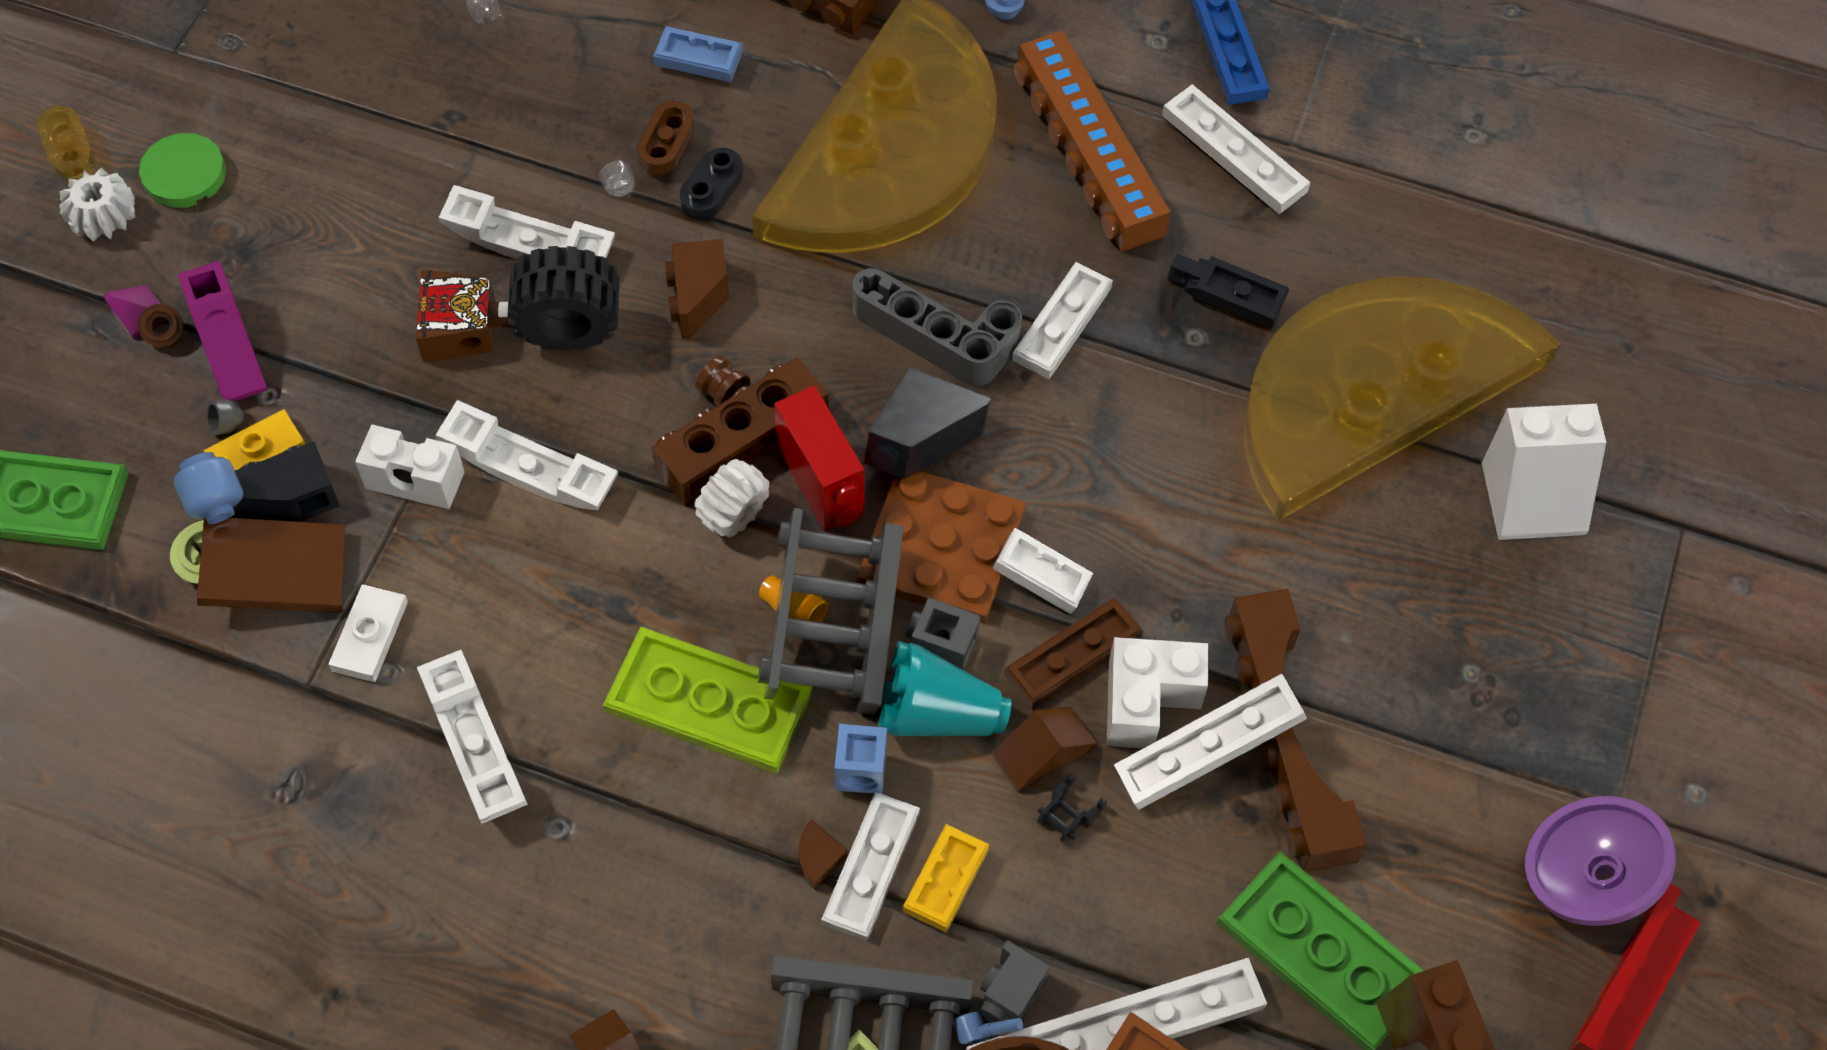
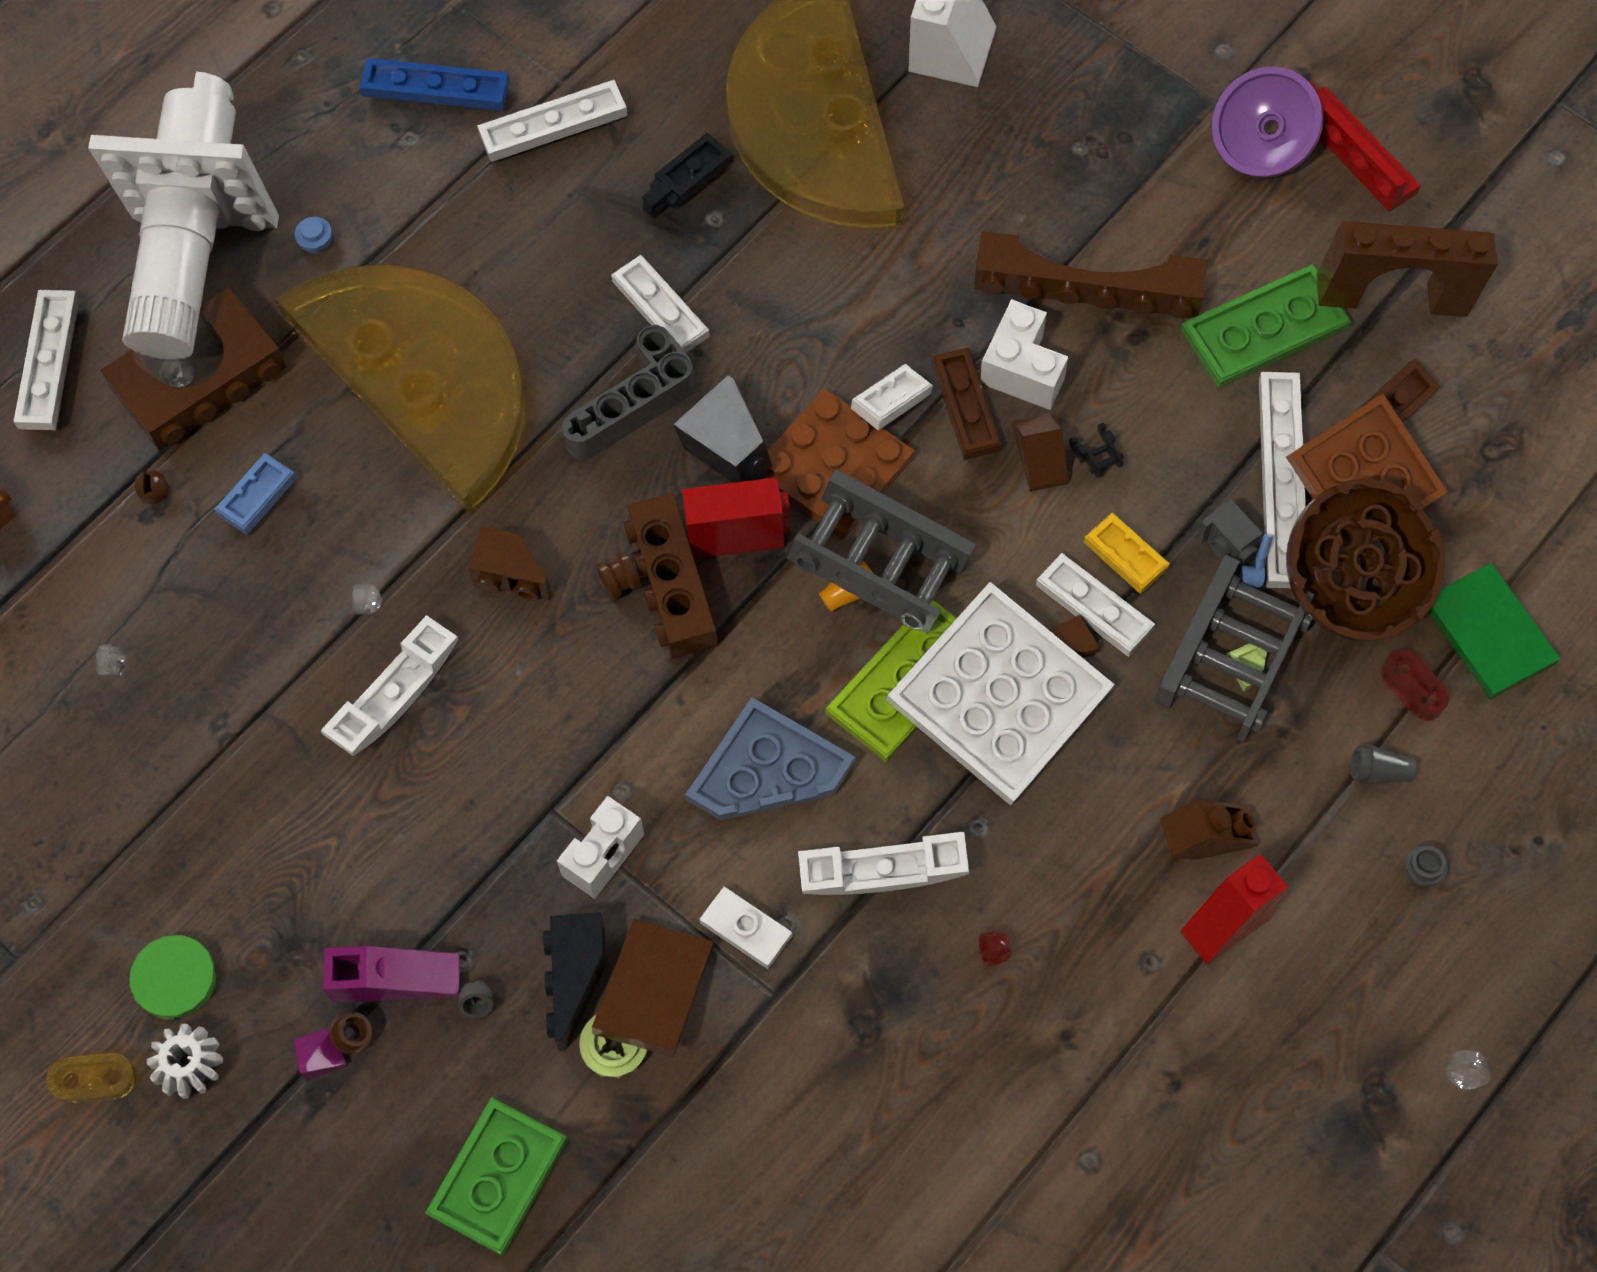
camera: 65 degrees left, 5 degrees up
(208, 487) = (574, 1009): medium blue head -> none
(259, 441) = (519, 980): yellow plate -> none
(411, 884) = (993, 948): none -> clear red hinge
(457, 315) = (455, 768): torso -> none
(523, 462) = (633, 752): white slope -> none
(555, 592) = (767, 766): none -> sand blue plate
(563, 298) = (492, 668): black tyre -> none
(662, 140) = (339, 548): reddish brown plate -> none
(714, 180) = (399, 524): black plate -> none
(714, 792) = (1000, 693): none -> white plate
(732, 498) = (741, 597): white gear -> none
(860, 758) = (1015, 572): medium blue brick -> none
(938, 698) = (981, 505): teal cone -> none
(947, 621) = (927, 474): dark grey brick -> none
(1092, 142) = (496, 219): dark orange brick -> none
(1210, 741) = (1088, 330): white plate -> none

